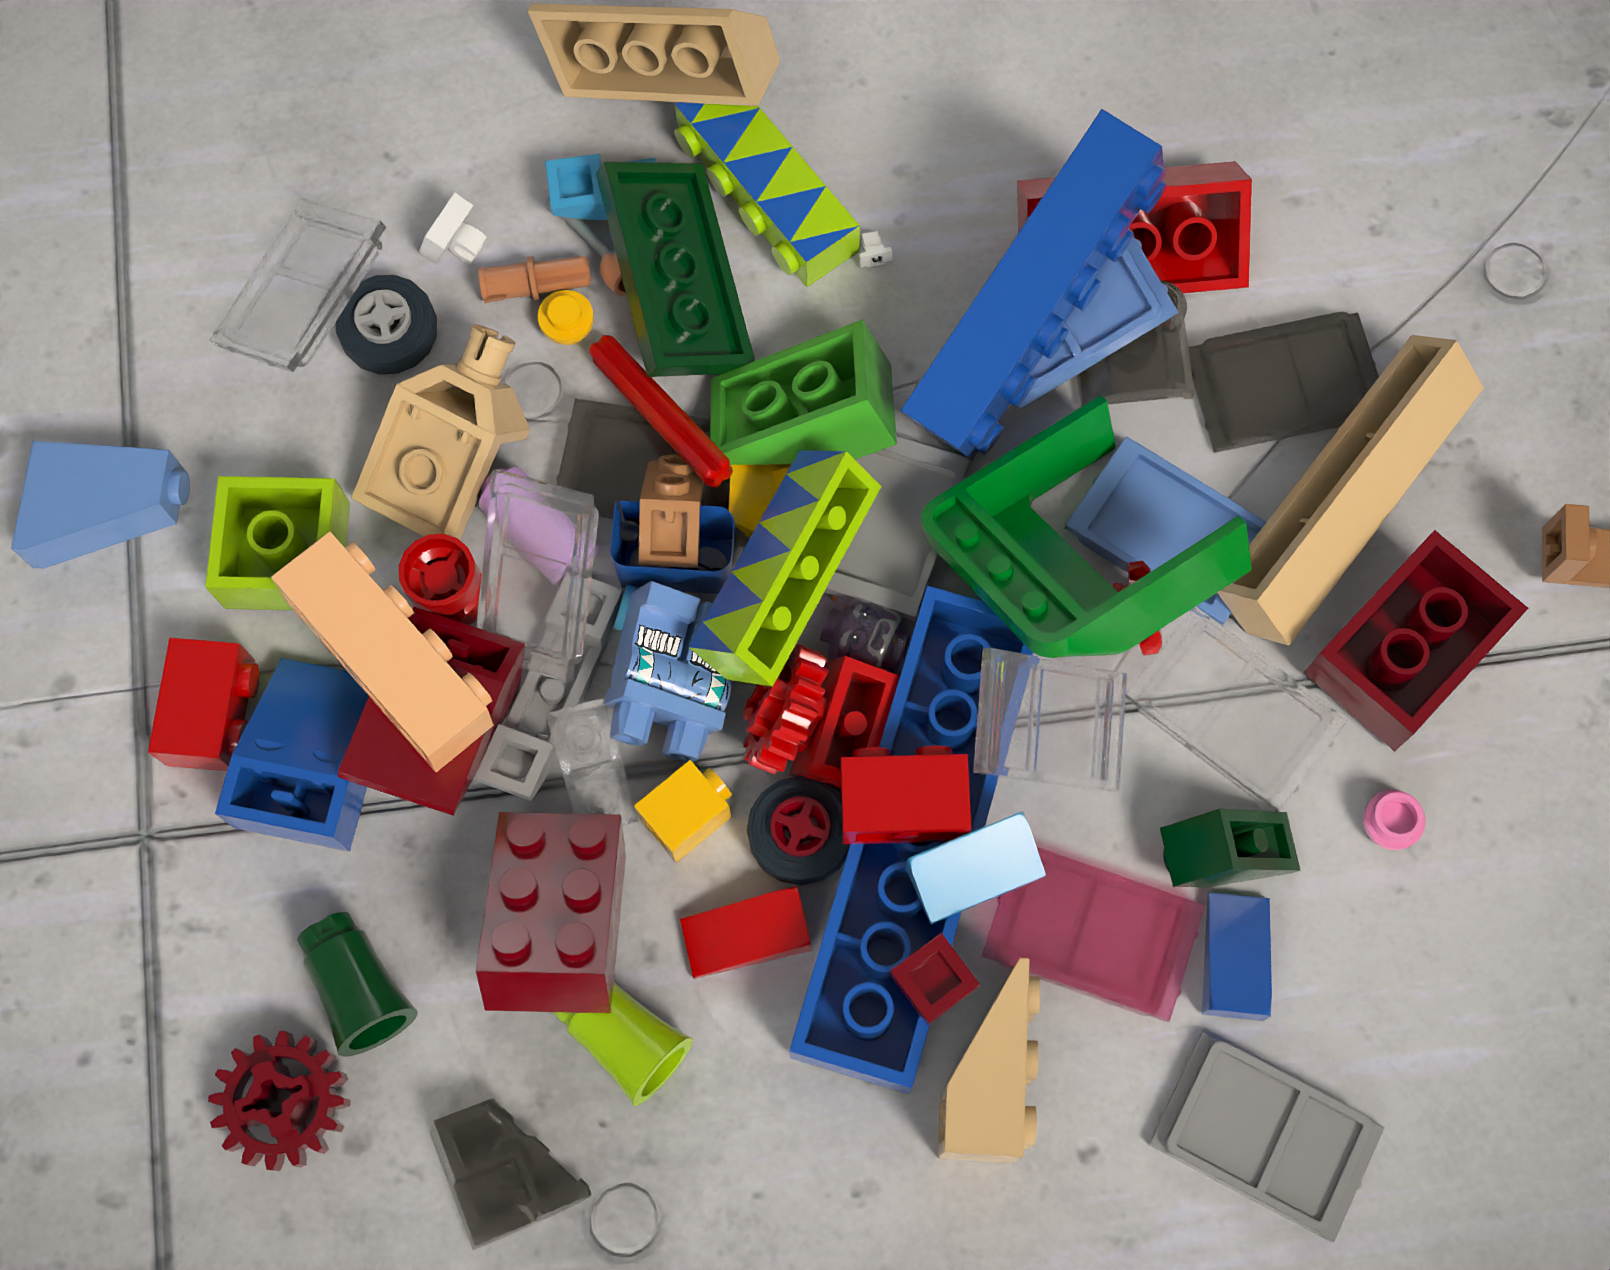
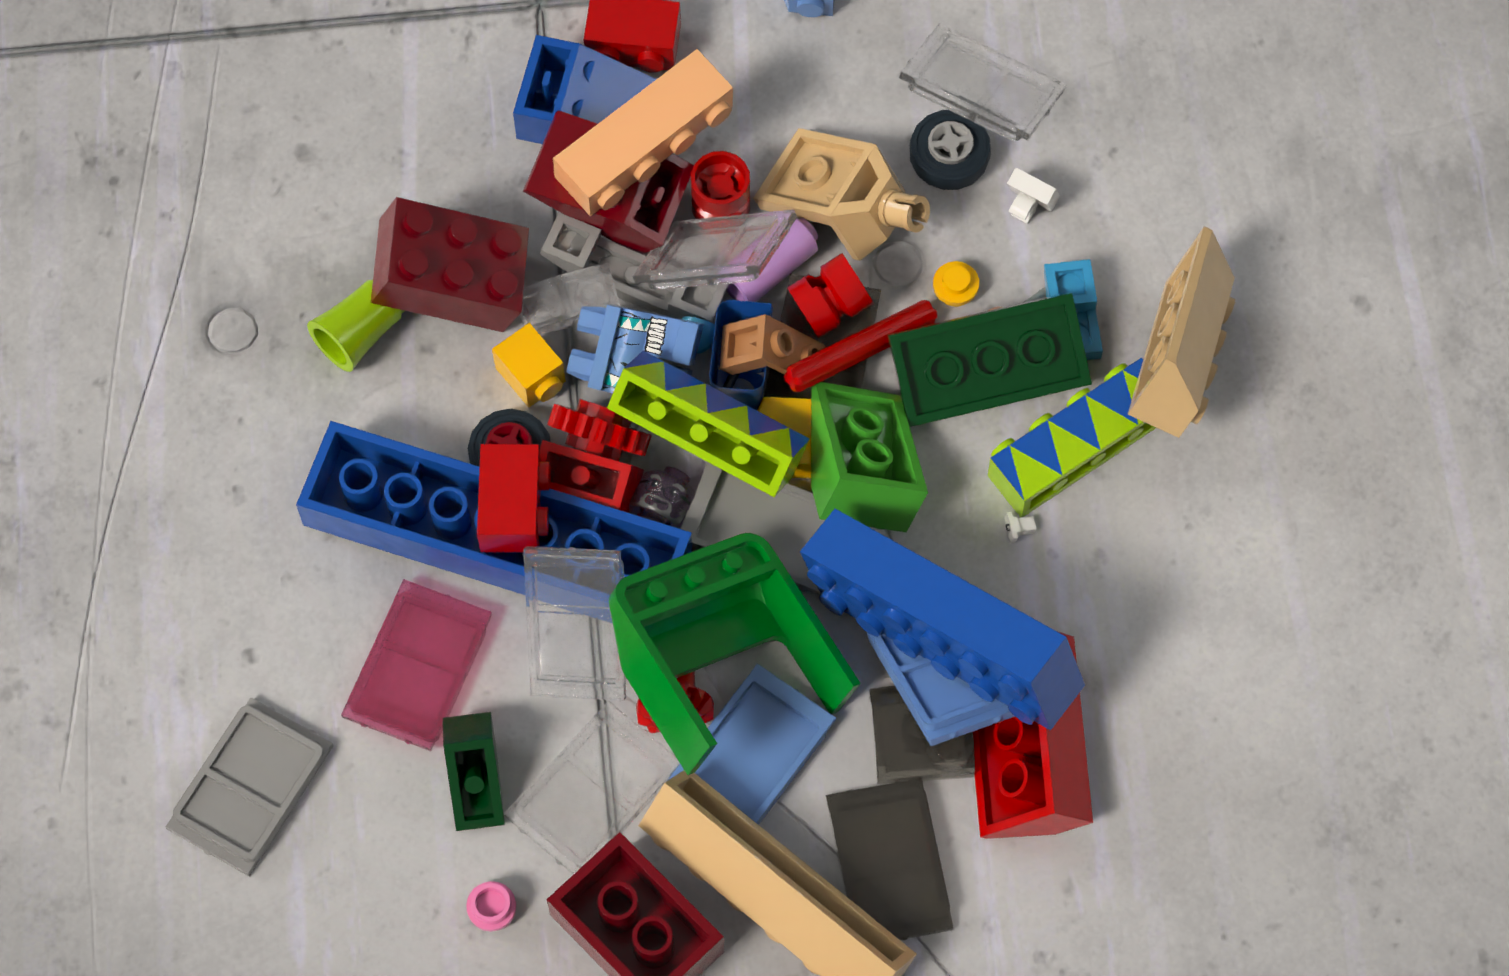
camera: 90 degrees right, 5 degrees down
(262, 528) = (764, 70): lime brick -> none
(287, 1127) = (351, 82): dark red gear -> none
(353, 985) = (411, 139): dark green plant -> none
(500, 1173) = (270, 242): clear smoke slope -> none
(533, 278) = (991, 258): nougat axle -> none
(593, 440) = (830, 295): none -> red wheel
(746, 933) = (434, 412): red slope -> none
(934, 979) = (371, 515): dark red plate -> none
(975, 867) = (455, 551): slope -> none
(985, 1097) = (294, 565): tan slope -> none
(1237, 957) = (387, 772): blue slope -> none

